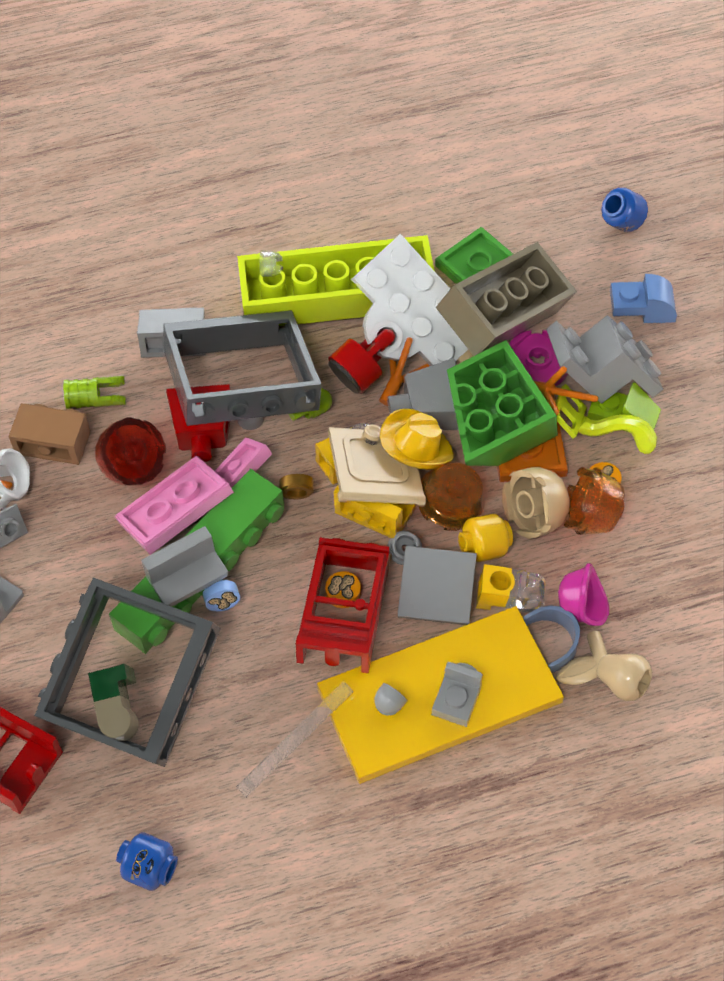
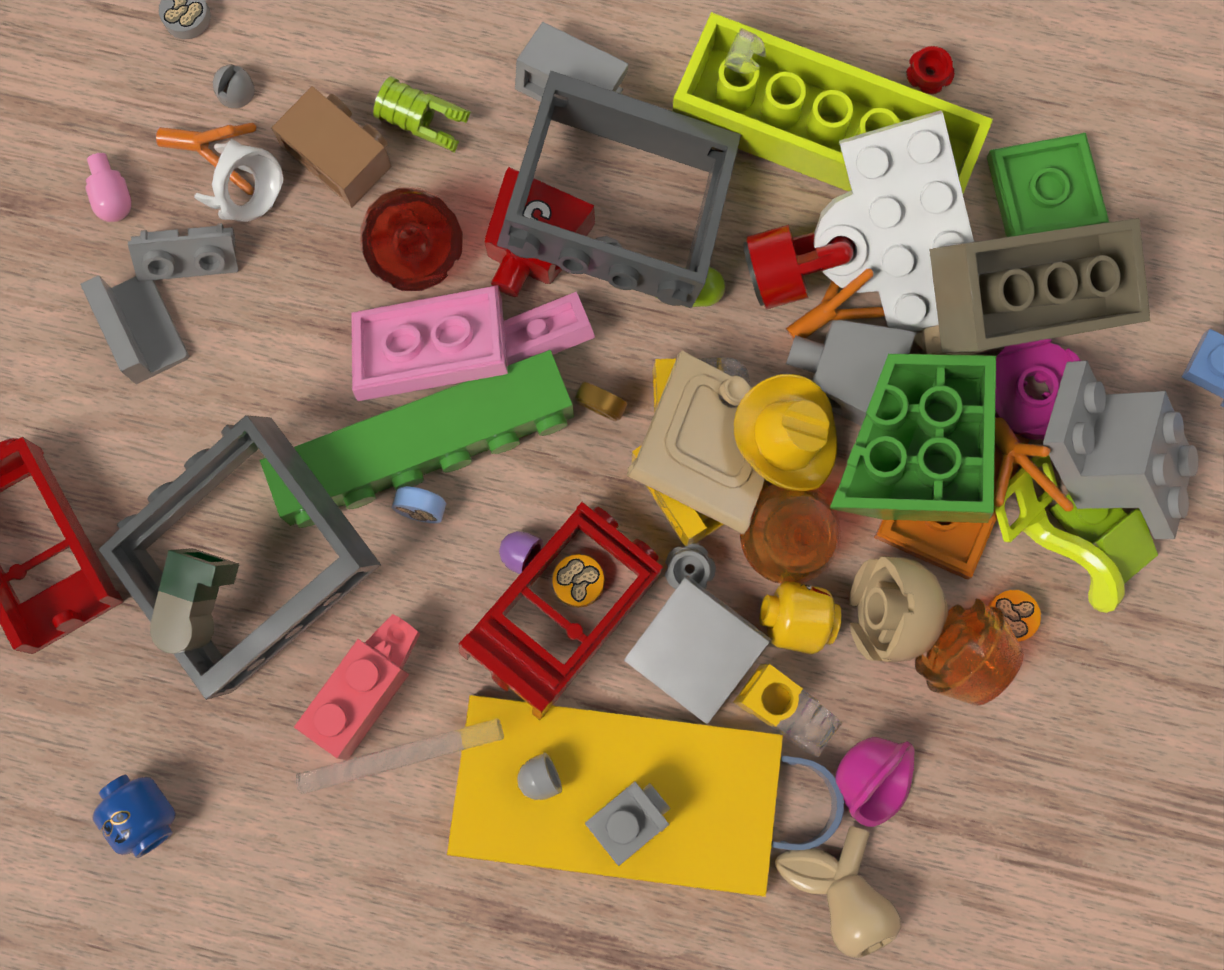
camera: 30 degrees right, 20 degrees up
(184, 567) = (382, 455): light grey panel -> none
(247, 713) = (359, 689): none -> coral hinge
(297, 590) = (519, 550): none -> medium lavender hinge
(376, 231) = (933, 58): none -> red plate

